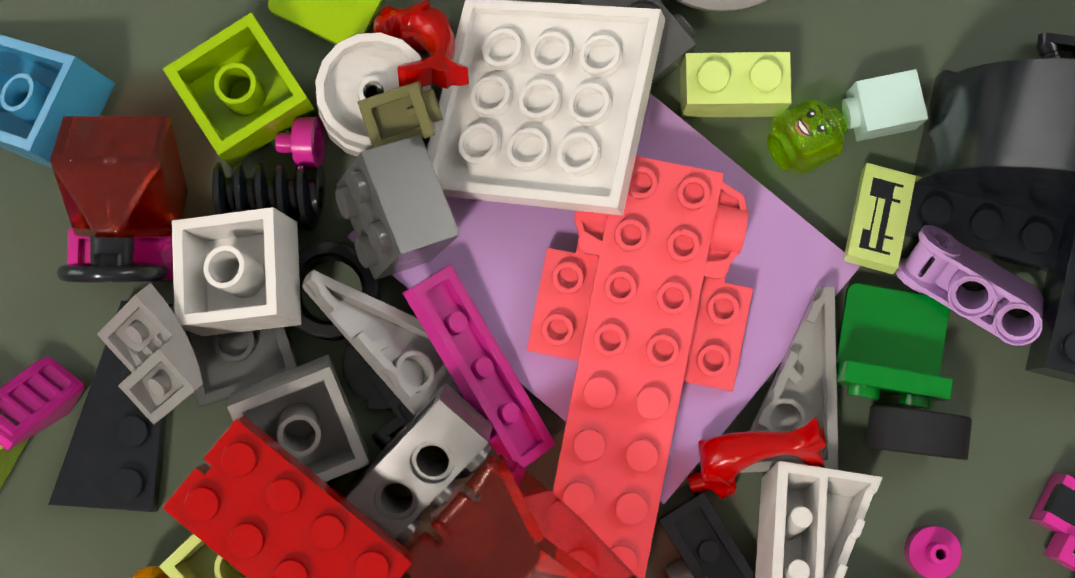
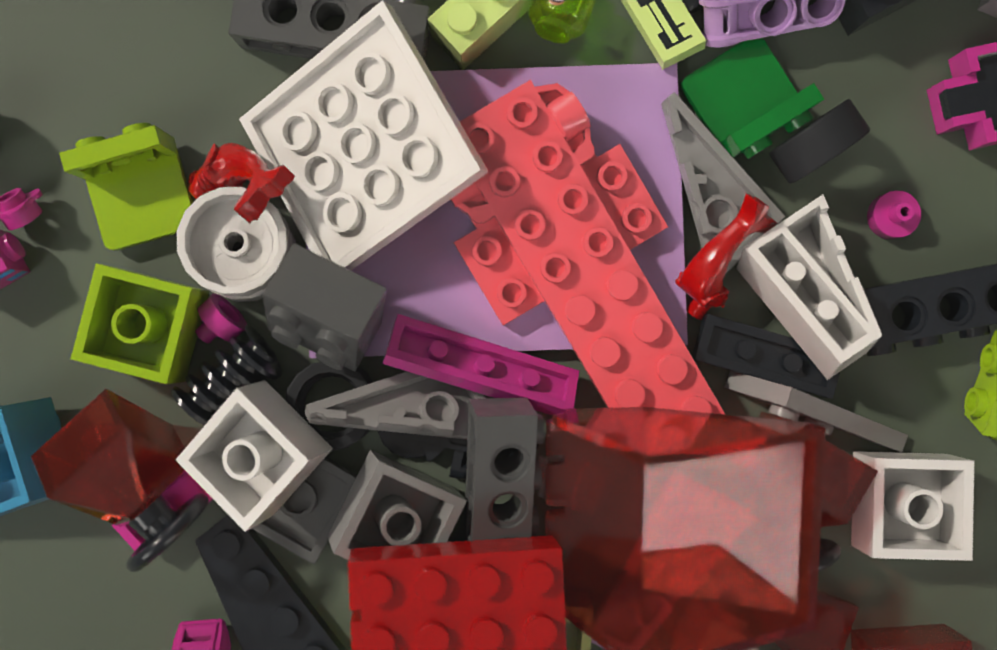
camera: 40 degrees left, 5 degrees up
(155, 351) = (248, 557): light grey slope -> none
(400, 114) = (266, 240): olive bracket -> none

